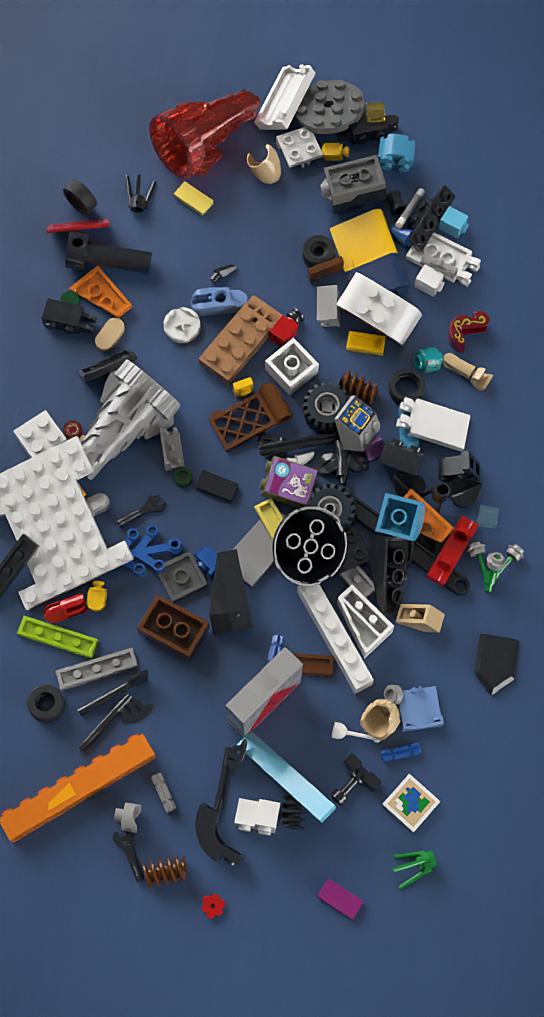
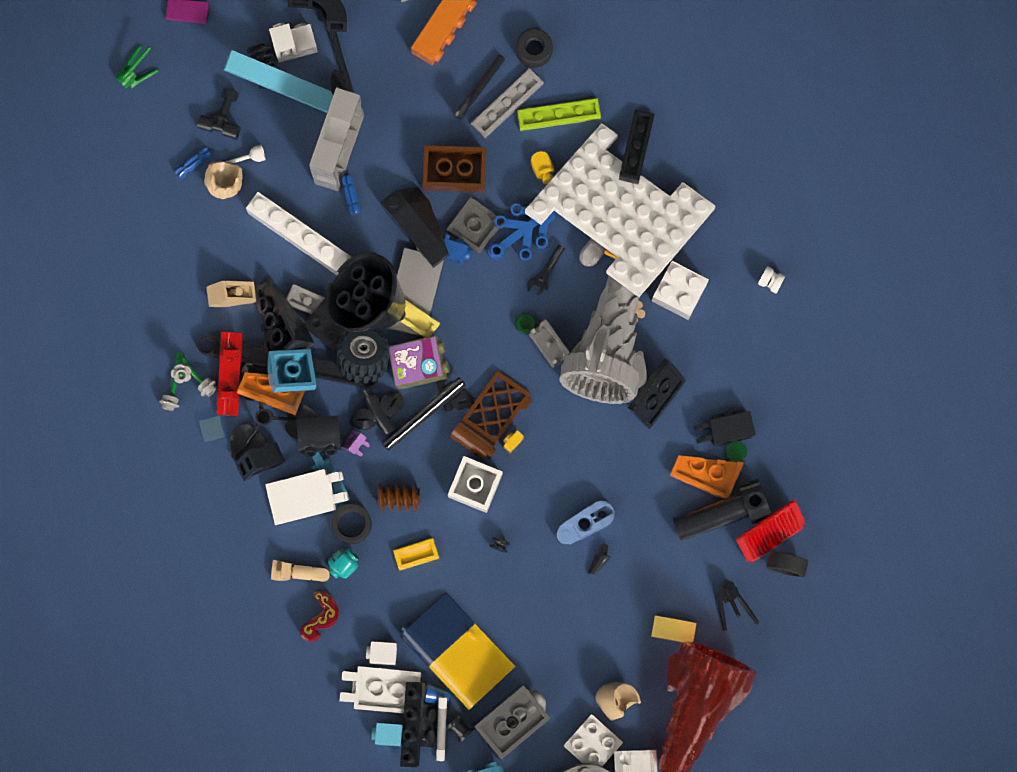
camera: 155 degrees right, 10 degrees up
(65, 608) = (564, 141): red arm -> none
(72, 429) = (656, 317): clear red tile -> none
(109, 334) = (676, 435): tan tile -> none
(118, 708) = (467, 78): black piece -> none
(163, 792) = (387, 24): light grey axle -> none
(182, 325) = (610, 481): white tile -> none
(216, 486) = (487, 330): black tile -> none
(239, 340) = (541, 493): medium nougat hinge -> none
(283, 331) = (503, 522): red brick -> none
(302, 458) = (420, 396): white bar -> none
(316, 664) = (310, 203): reddish brown tile -> none
(317, 242) = (503, 638): black tyre -> none
(323, 405) = (419, 459): black wheel -> none
(325, 269) = (495, 613): reddish brown tile -> none
(327, 311) = (472, 573): light grey hinge -> none
(334, 151) = (553, 758): yellow arm -> none
(356, 425) = (378, 448): slope -> none
(364, 620) = (281, 262): white wedge -> none
(379, 309) = (417, 584): white brick -> none
(393, 693) = (223, 209): light grey tile -> none
(411, 803) = (162, 122): tile -> none
(420, 709) = (193, 209): medium blue piece -> none
(439, 265) = (379, 670): light grey pin -> none
(496, 661) = (142, 290): black tile -> none

